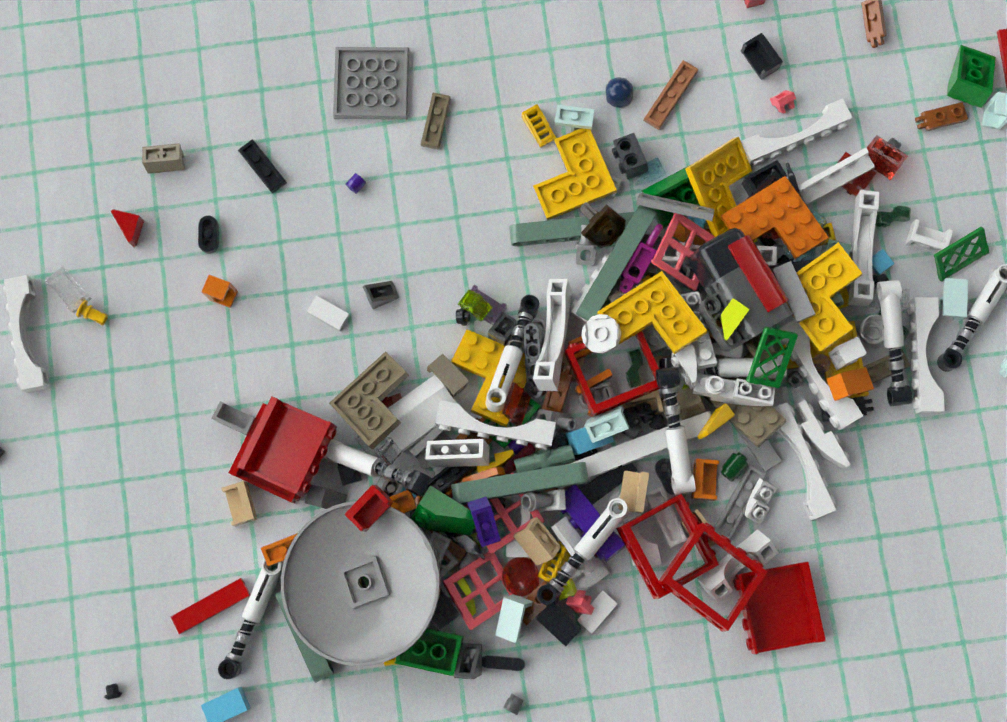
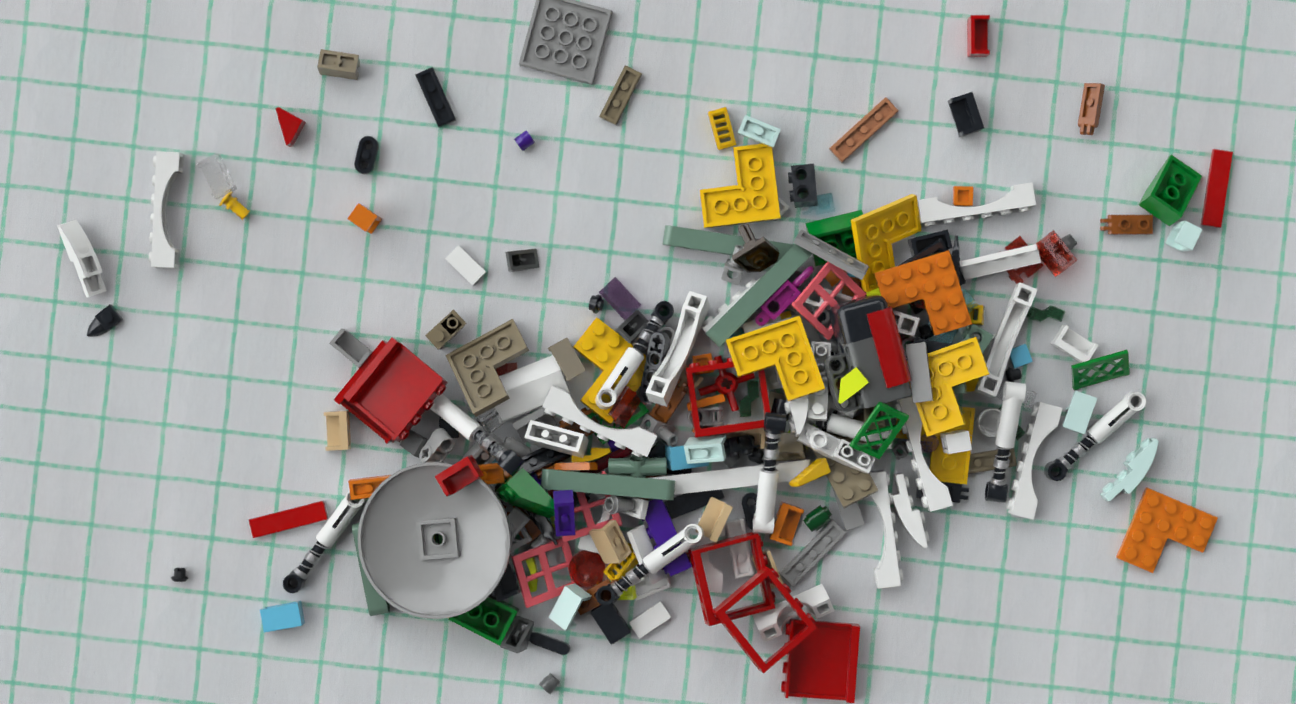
camera: 15 degrees right, 10 degrees up
(323, 377) = (446, 330): none -> dark tan slope
(342, 490) = (437, 446): none -> light grey piece
(475, 304) = (610, 298): clear neon green panel -> none
(580, 603) = (636, 608): coral tile -> none
(601, 334) = (723, 363): white tile -> none
(601, 364) = (723, 390): none -> red bar
(619, 92) = (812, 113): dark blue hair -> none
(759, 498) = (830, 558): white slope -> none
(781, 128) = (962, 196): none -> orange plate
(782, 99) = (974, 165): coral tile -> none
(850, 383) = (949, 471): orange panel -> none

